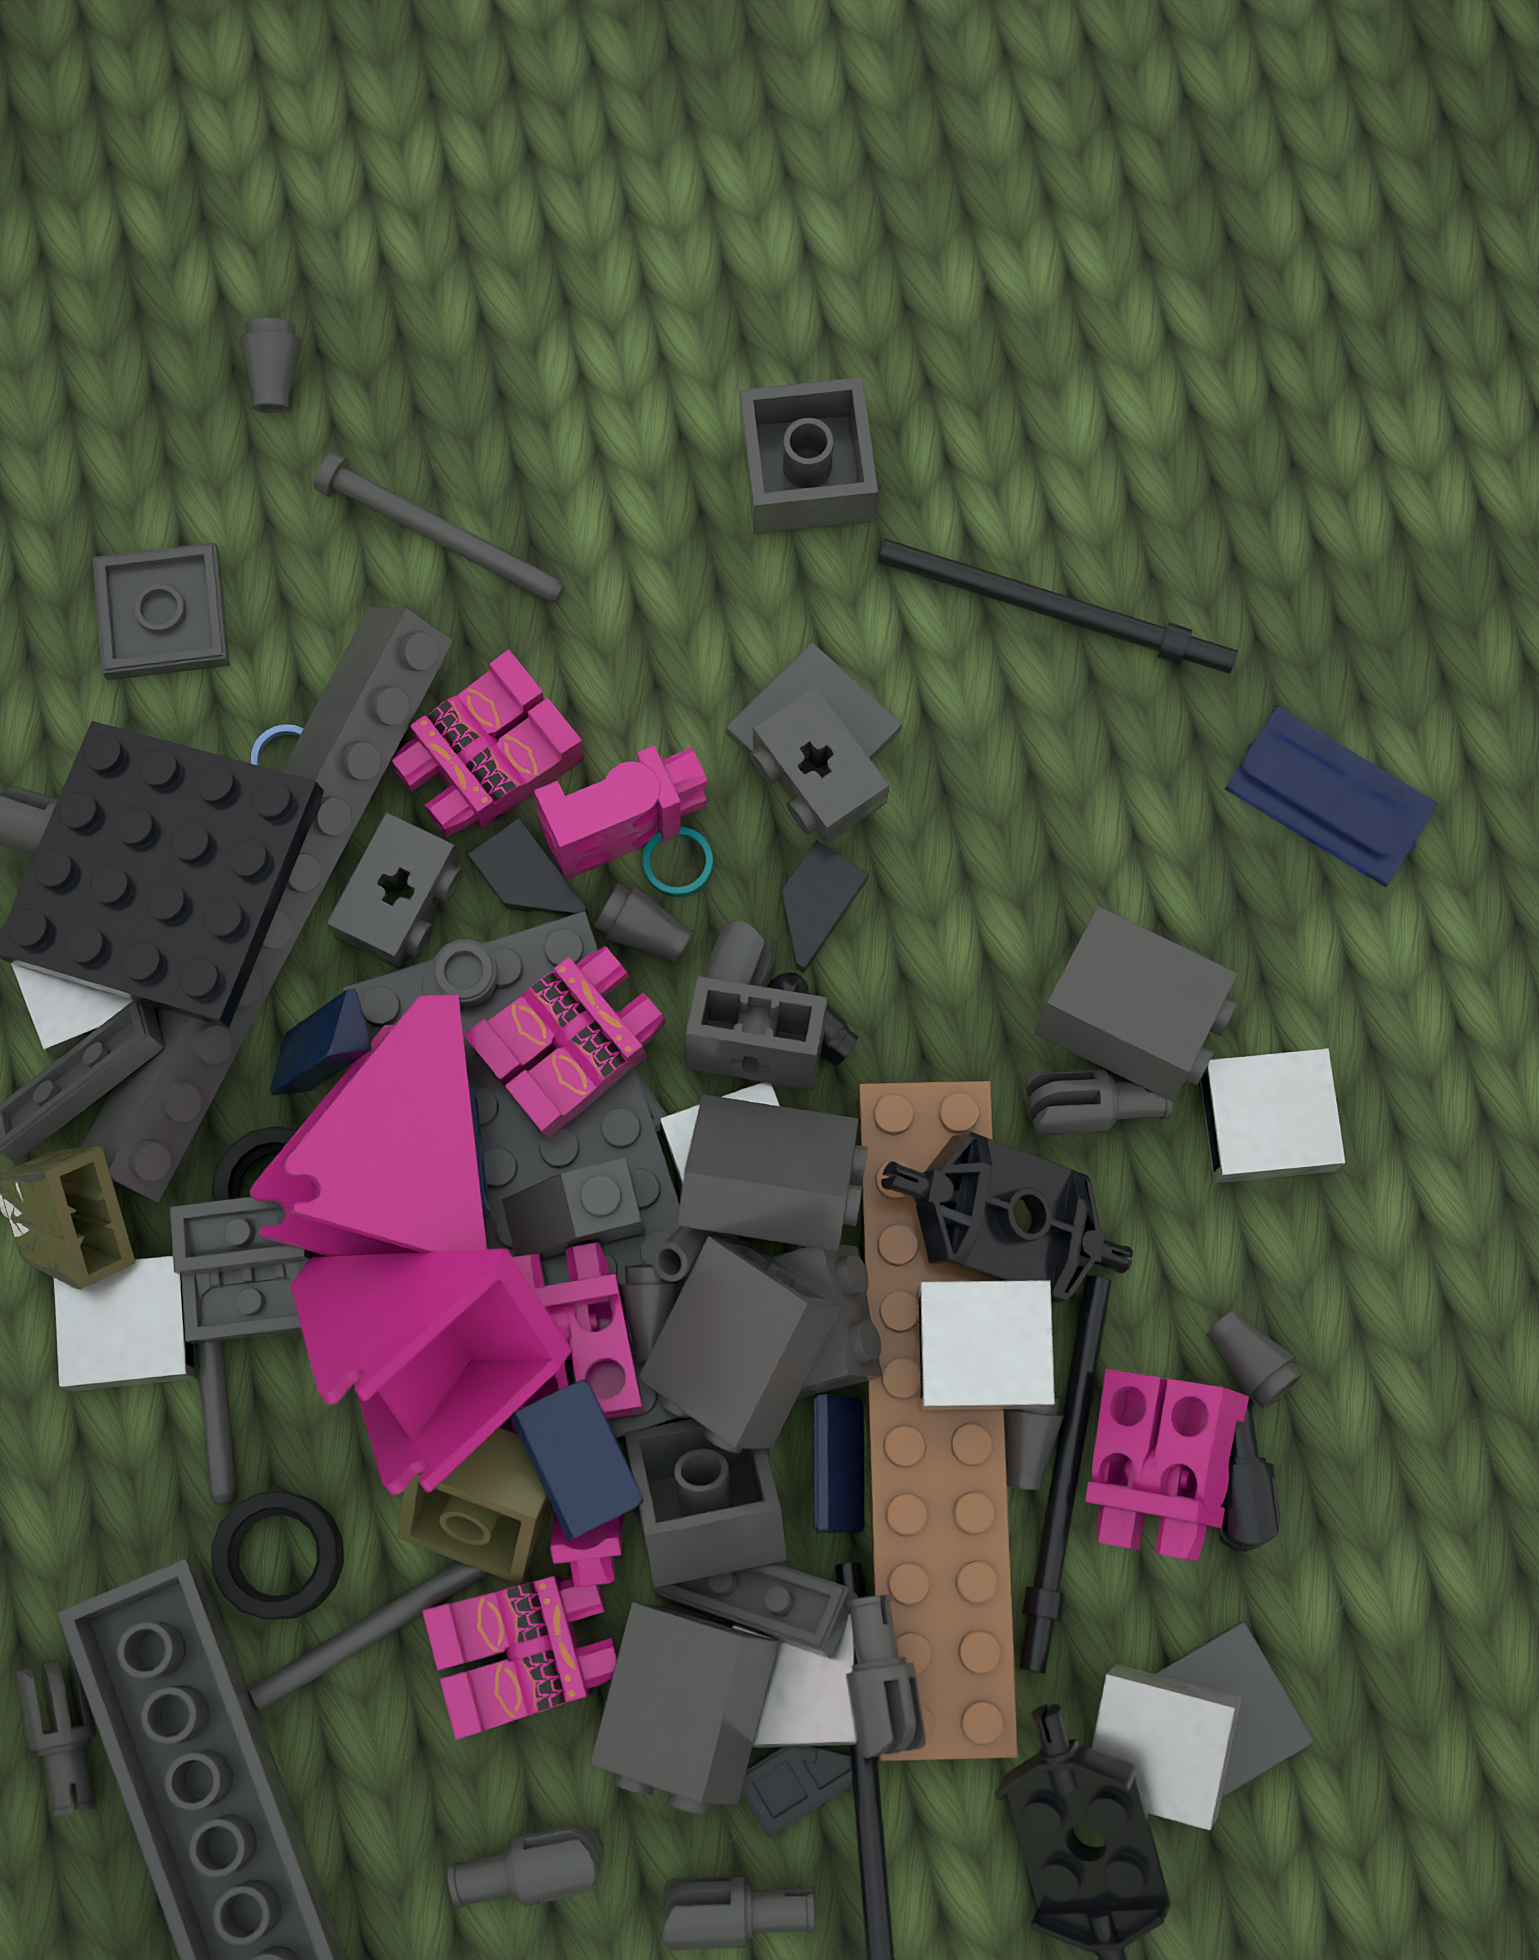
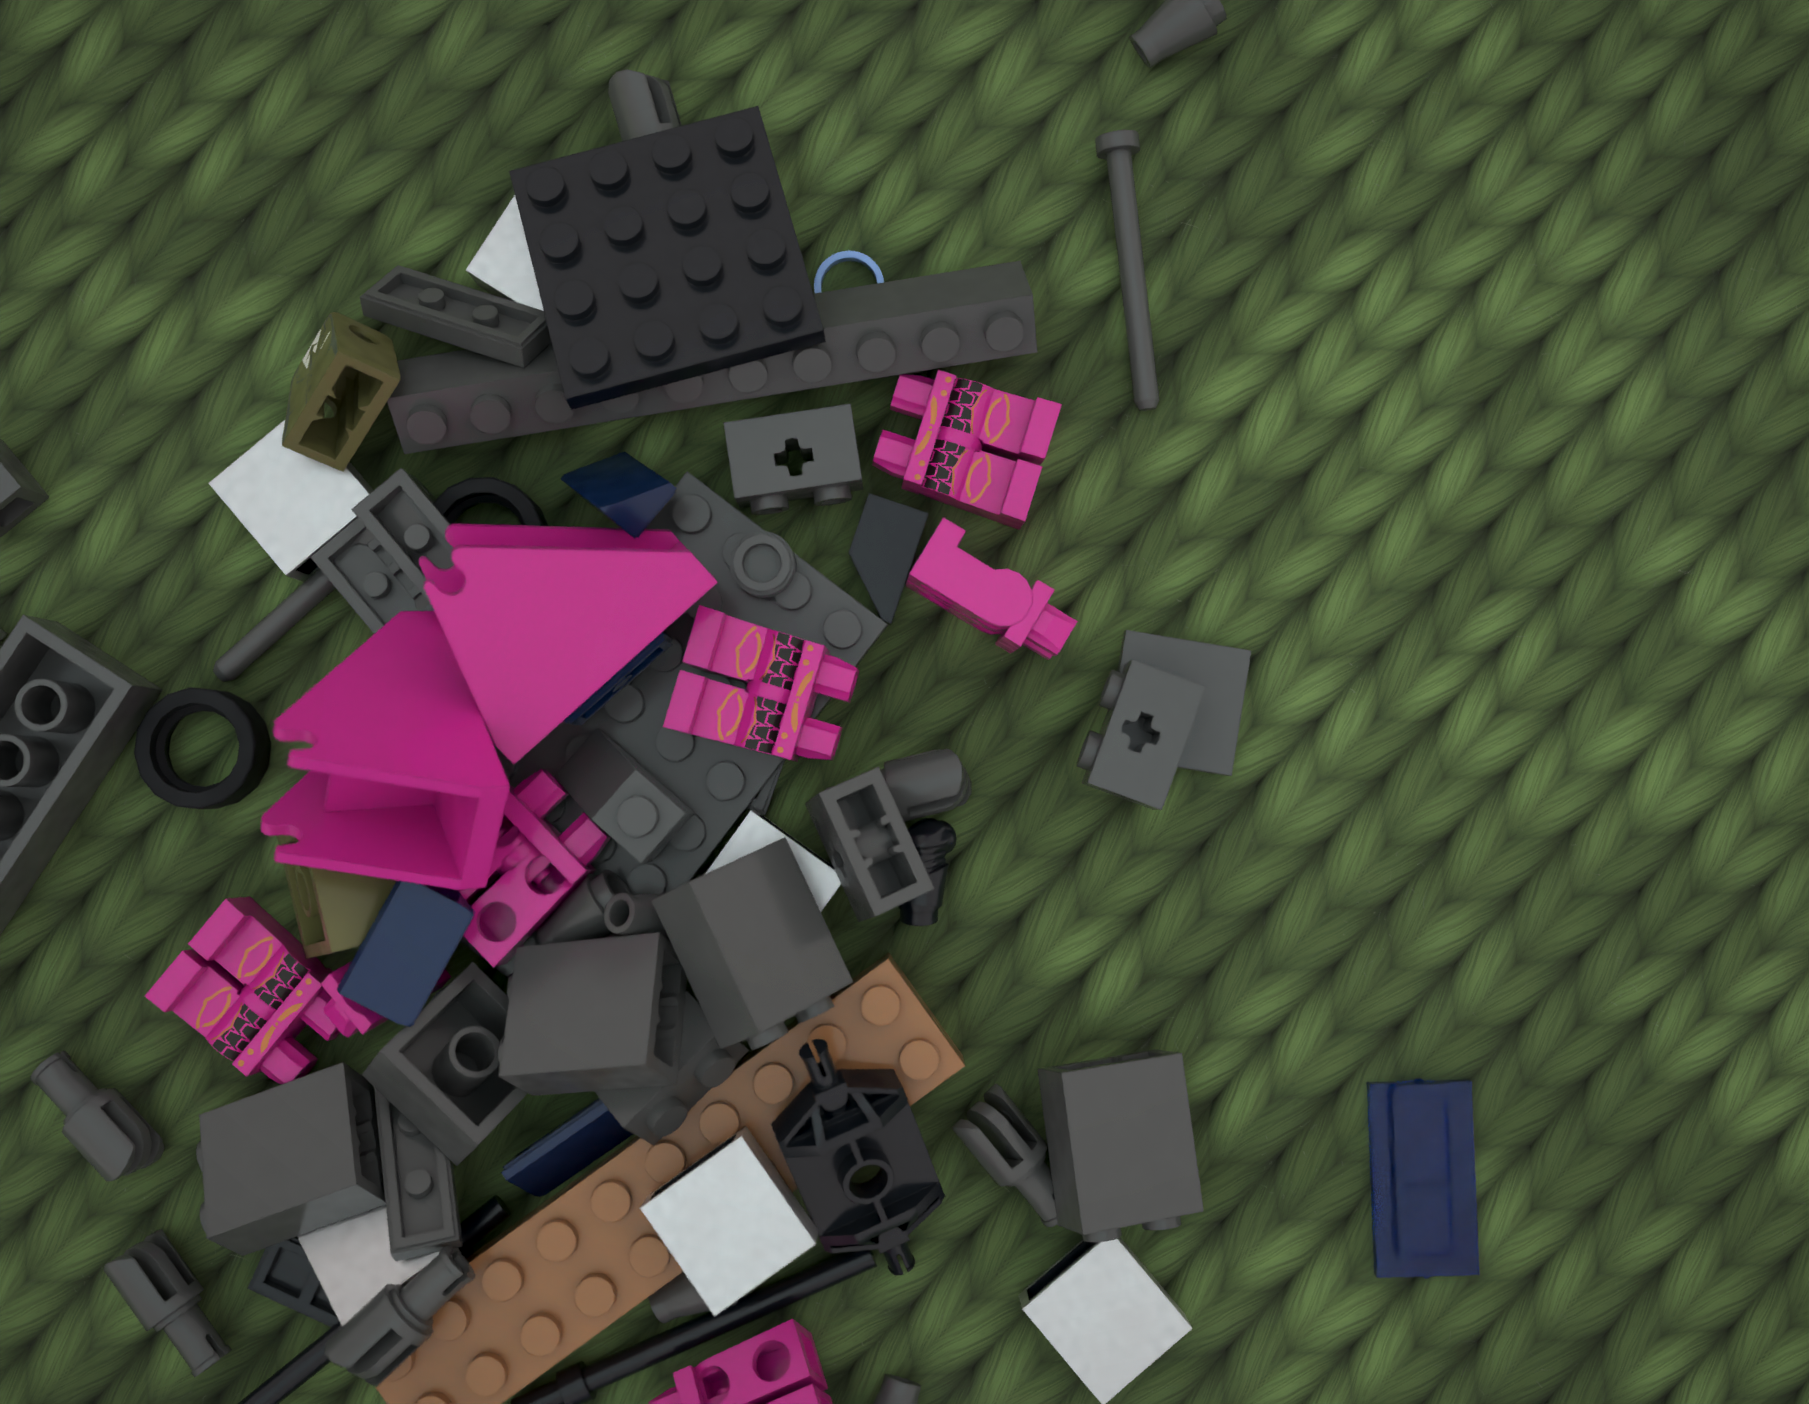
camera: 55 degrees right, 10 degrees up
(160, 611) = (902, 92): dark grey tile -> none
(363, 1634) = (188, 856): dark grey bar -> none
(642, 924) = (908, 677): dark grey cone -> none
(685, 890) = (967, 693): teal piece -> none
(808, 455) = (1415, 534): dark grey brick -> none
(818, 899) = (1031, 808): black tile -> none
(1172, 642) = (1465, 954): black bar -> none

